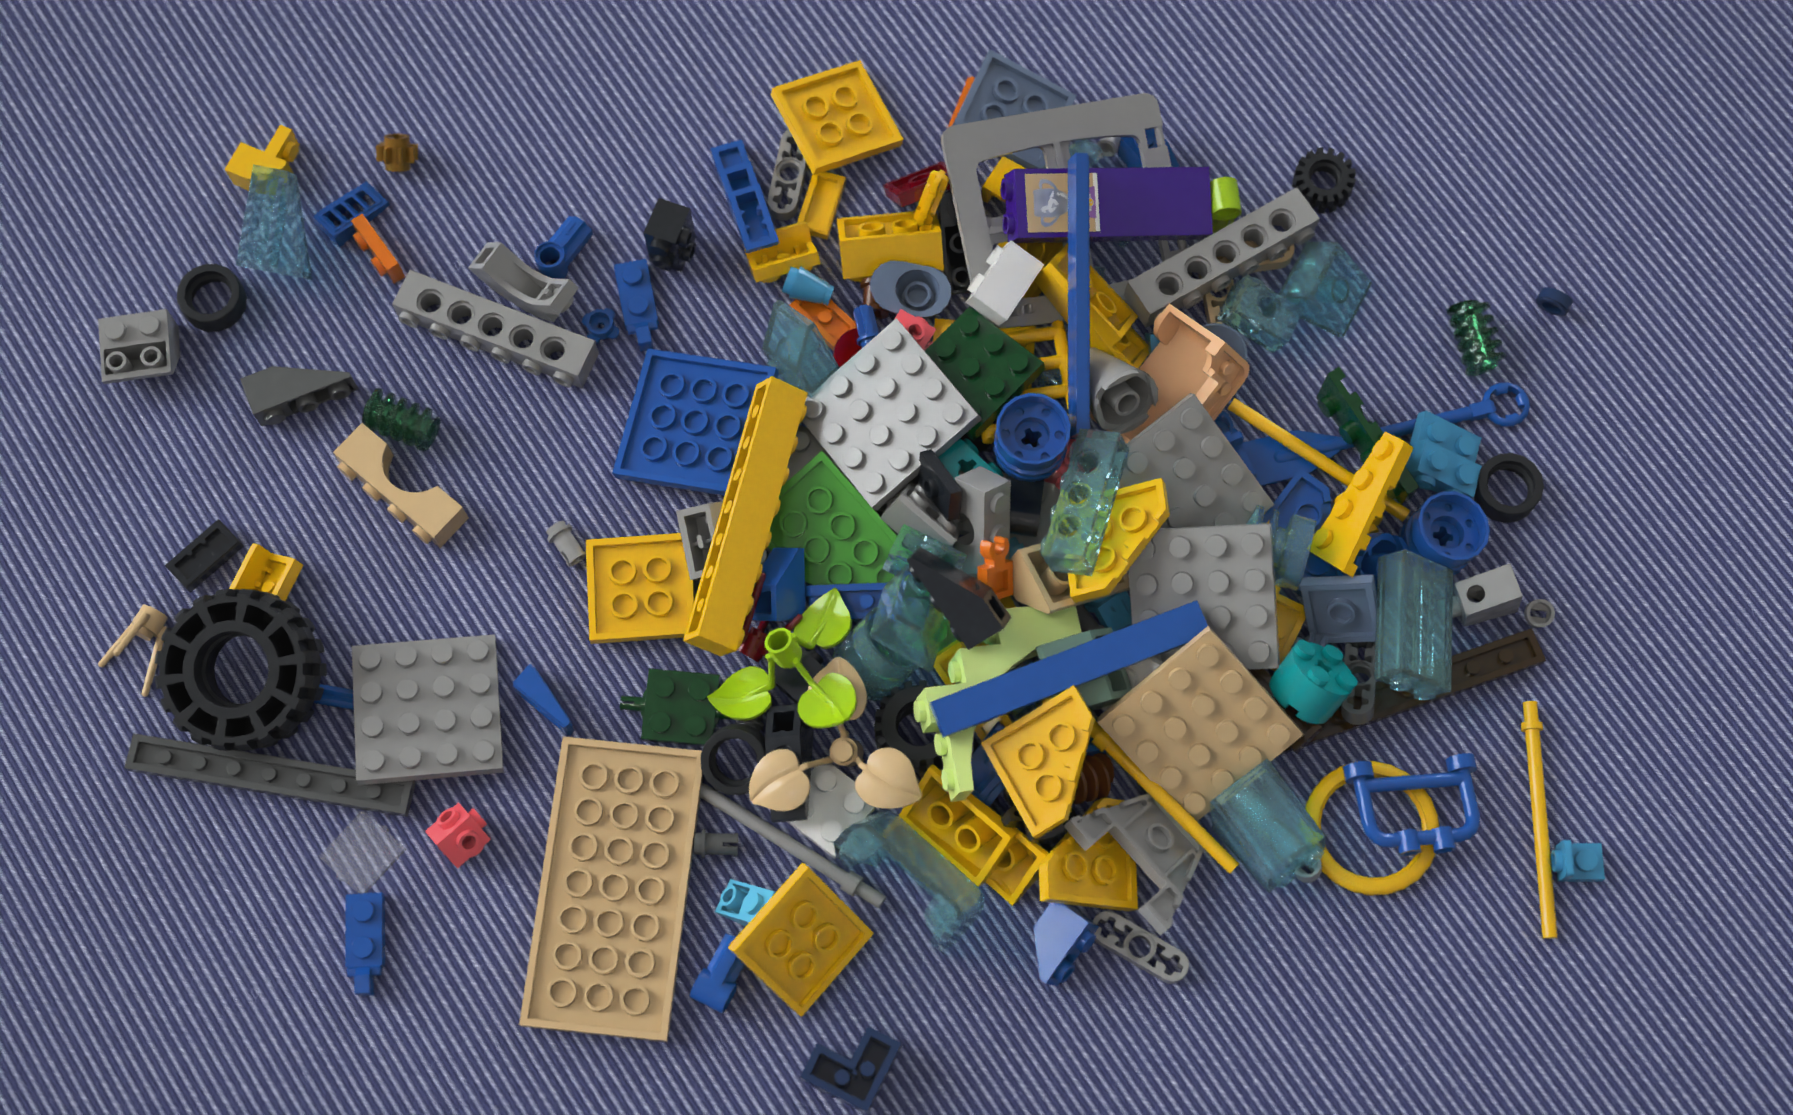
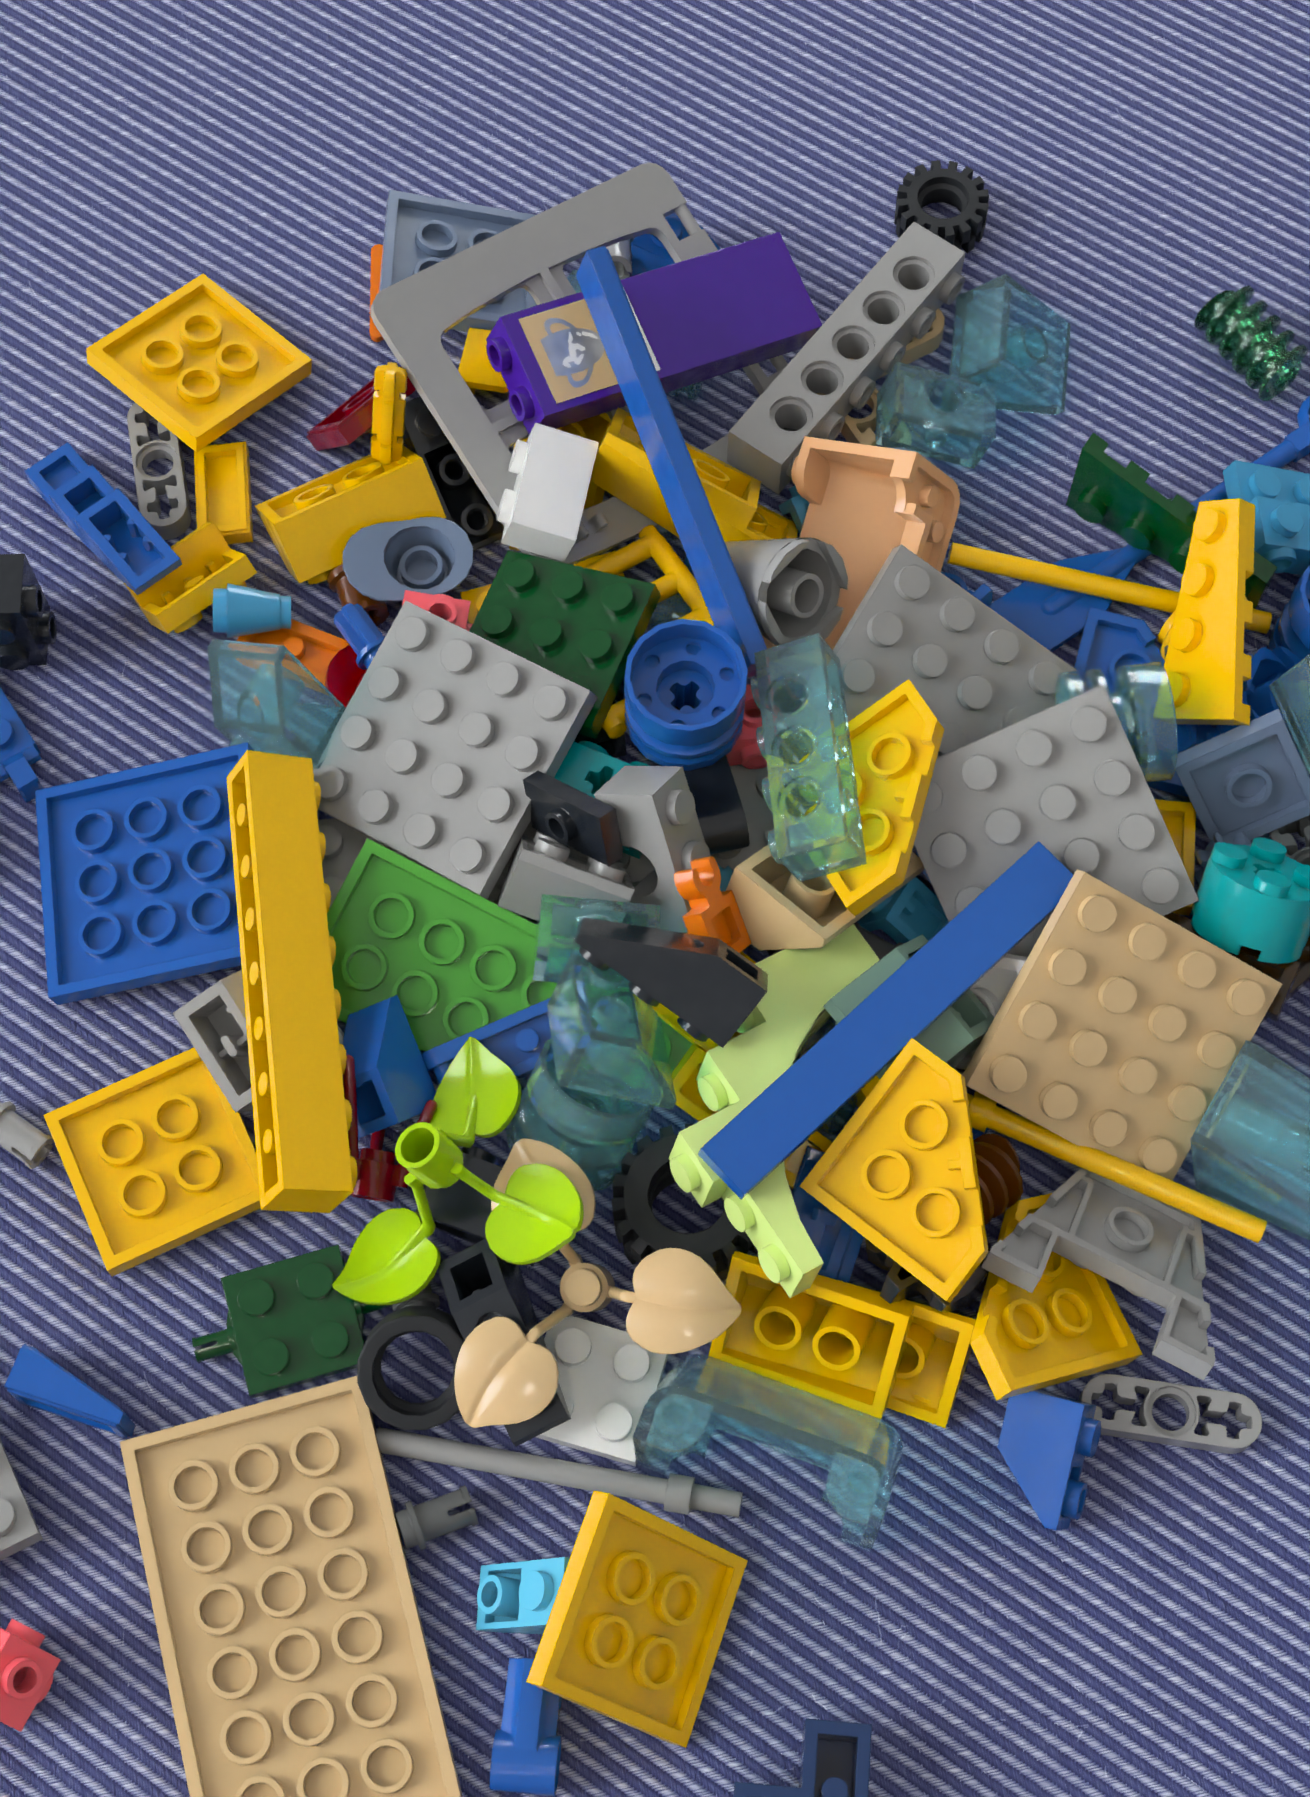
camera: 20 degrees left, 5 degrees down
(1224, 202) = (821, 274): lime piece -> none

